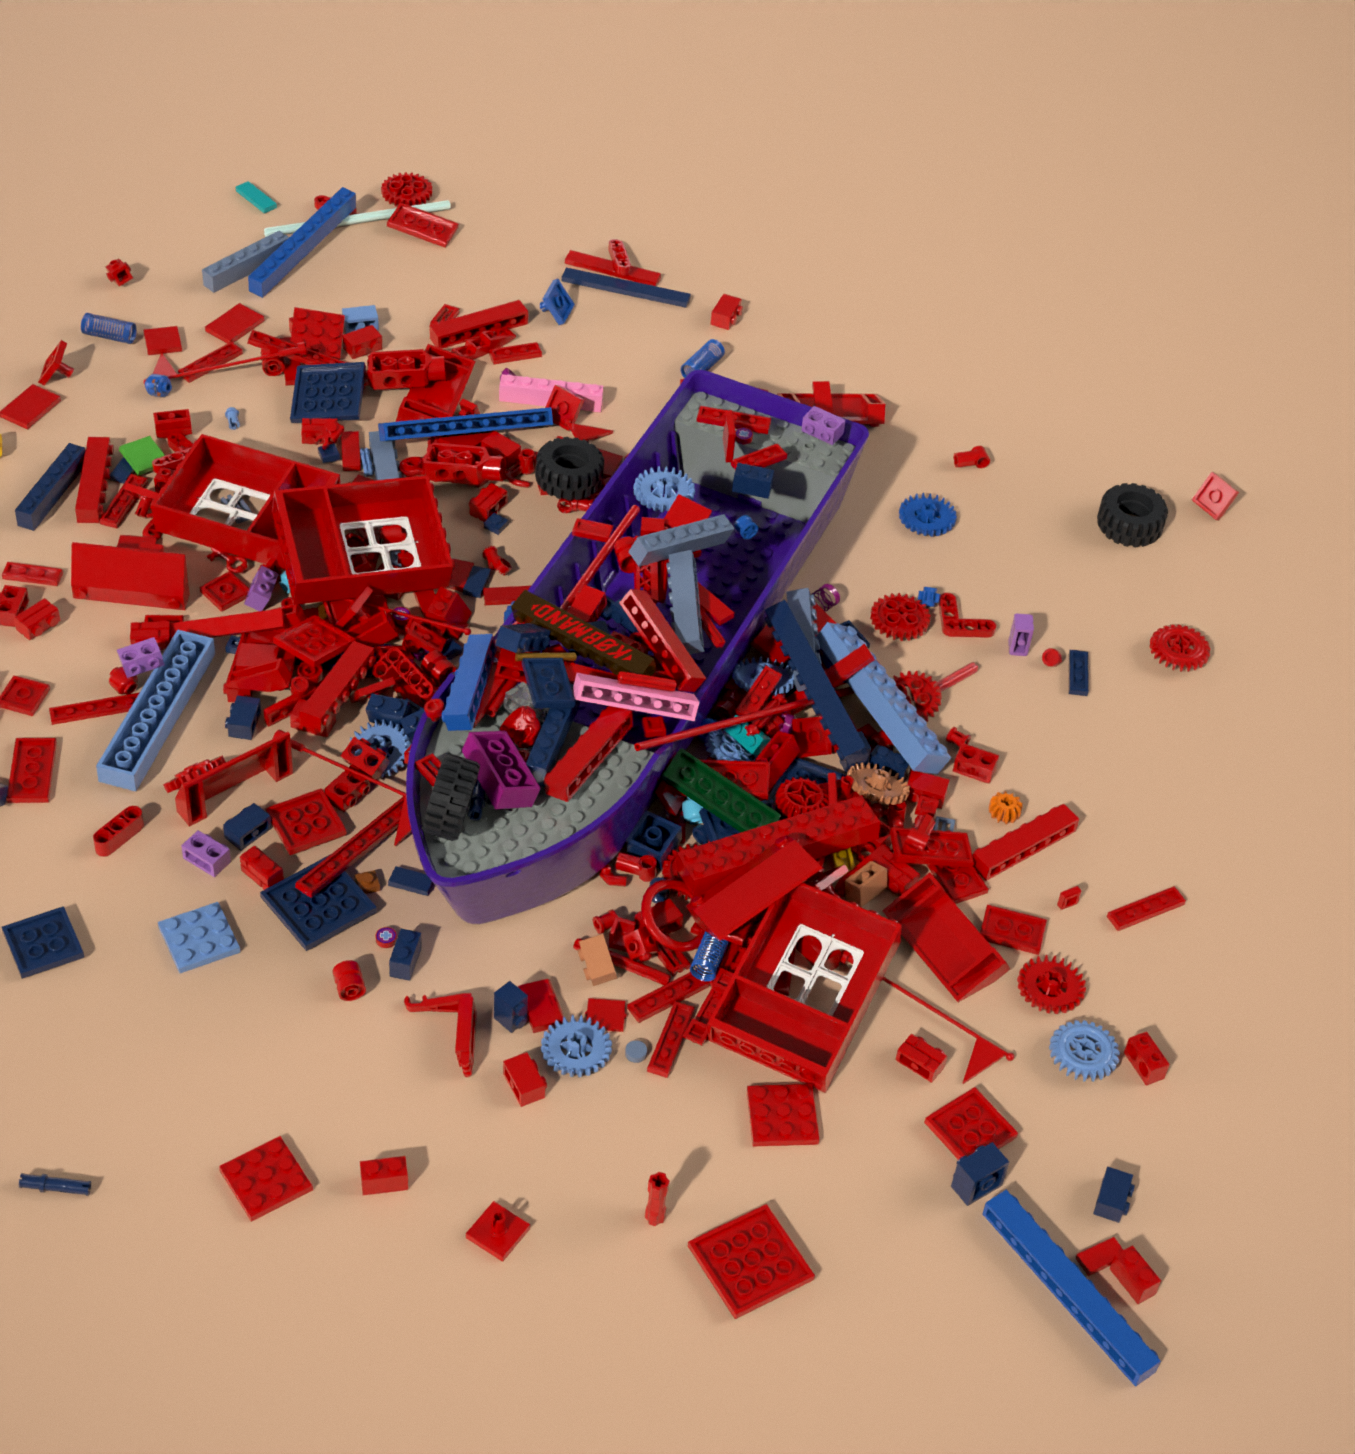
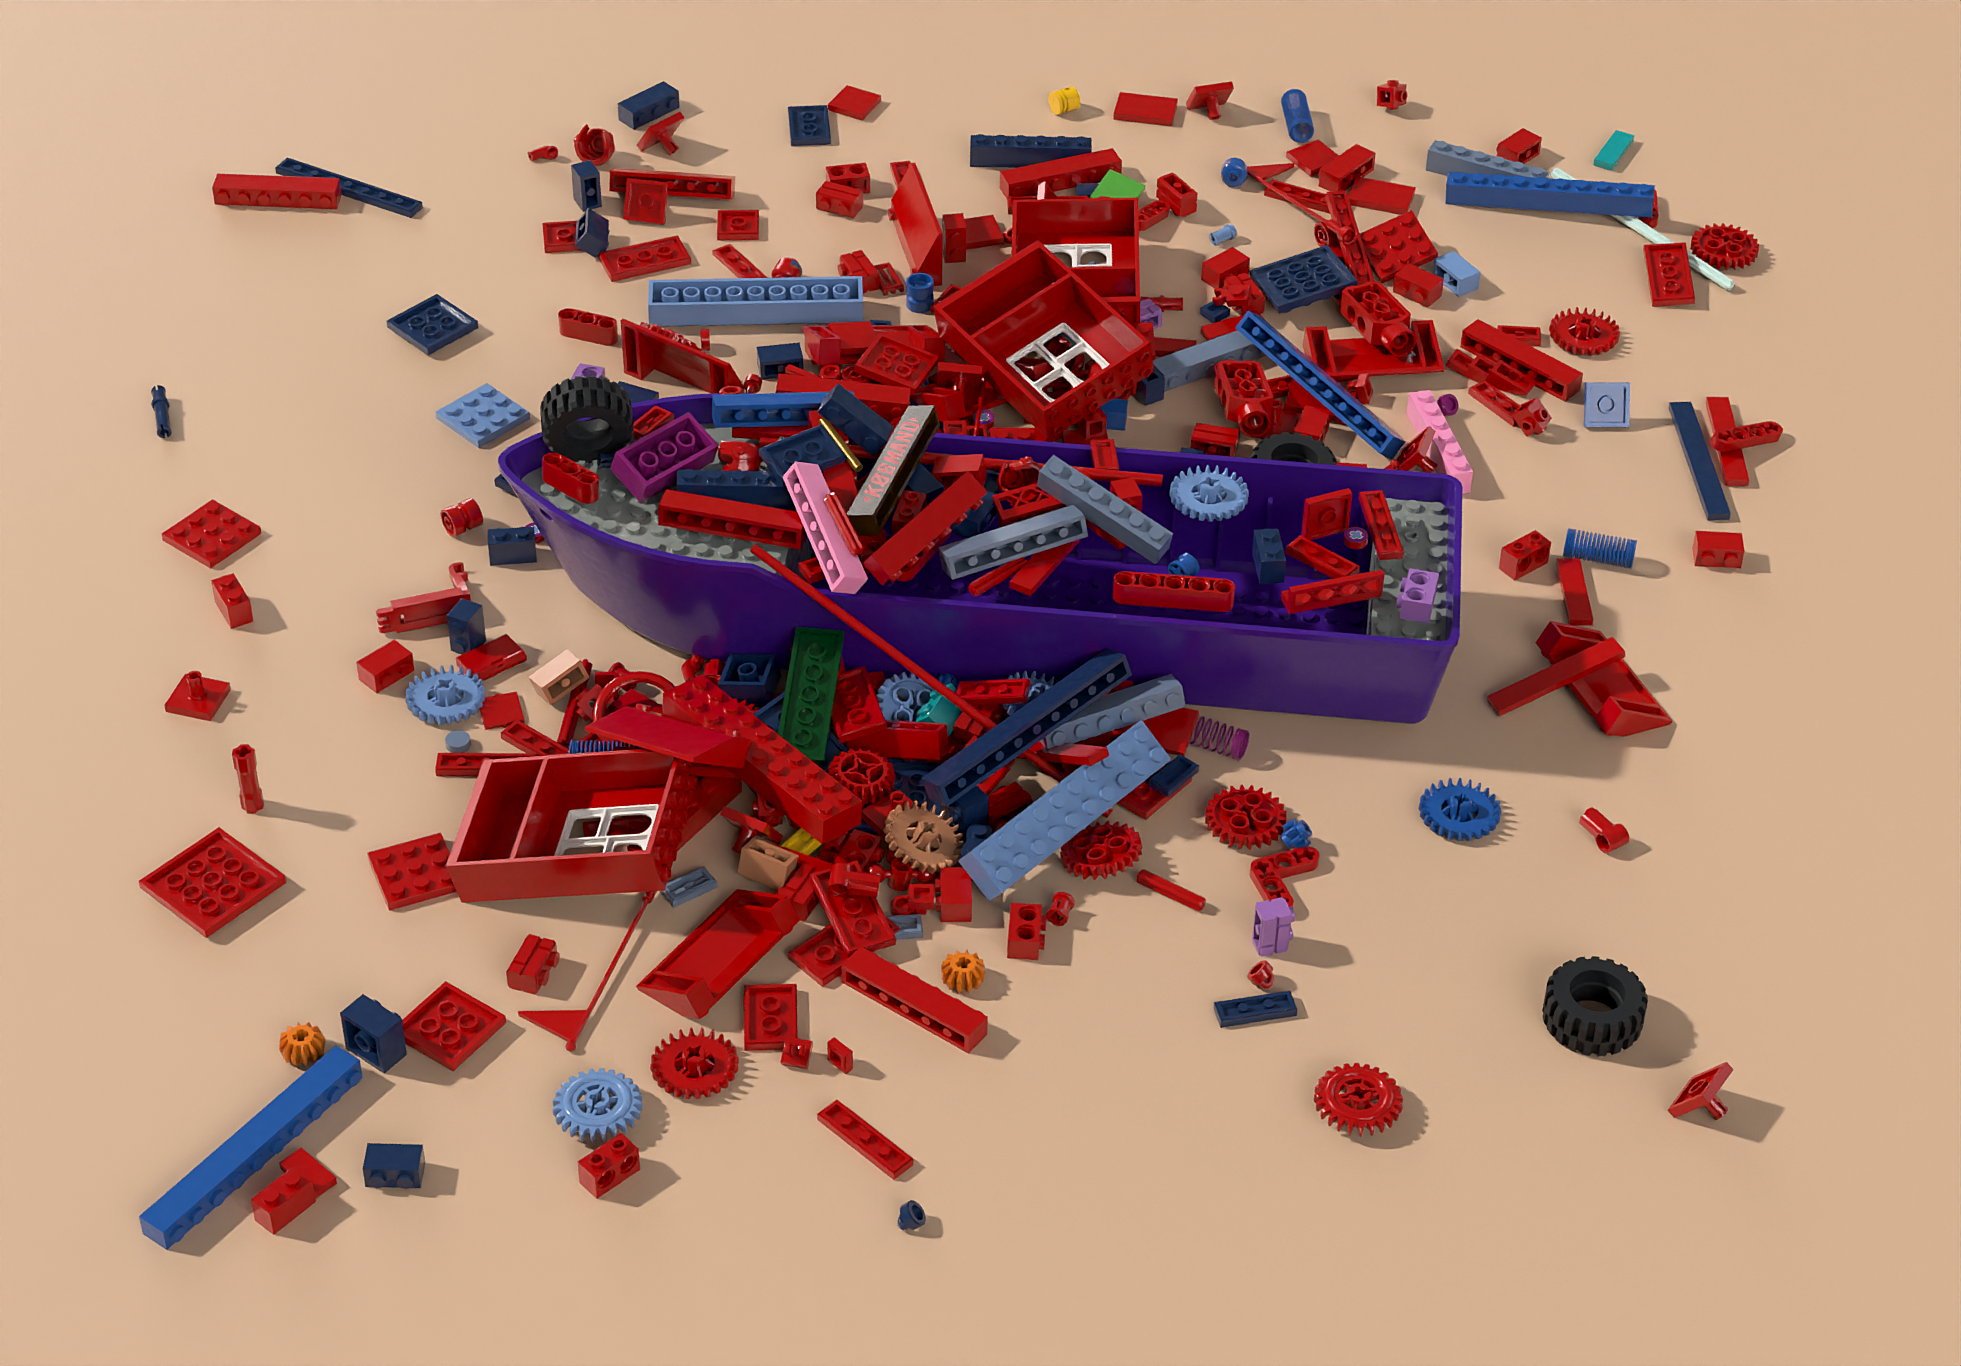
camera: 75 degrees right, 5 degrees down
(140, 657) = (801, 260): medium lavender brick -> none
(185, 757) = (705, 339): none -> red tile
(194, 328) = (1342, 171): none -> red brick
(207, 604) = (919, 292): none -> blue wheel
(227, 237) = (1520, 146): none -> red brick
(232, 624) = (894, 310): red tile -> none
(280, 430) = (1224, 265): none -> red brick
(461, 286) = (1585, 330): none -> red gear
(490, 839) = (570, 478): none -> red beam
(550, 340) = (1532, 417): none -> red brick
(613, 578) = (1018, 474): none -> red helmet
(684, 512) = (1170, 512): red tile -> none
(752, 729) = (932, 699): red wheel -> none
(769, 540) = (1173, 591): none -> red beam
(798, 464) = (1333, 592): none -> red fence
(832, 788) = (877, 793): red tile -> none
(966, 1230) = (302, 1044): none -> orange gear
(1058, 921) = (796, 1052): none -> red tile
(1227, 899) = (911, 1216): none -> dark blue tile

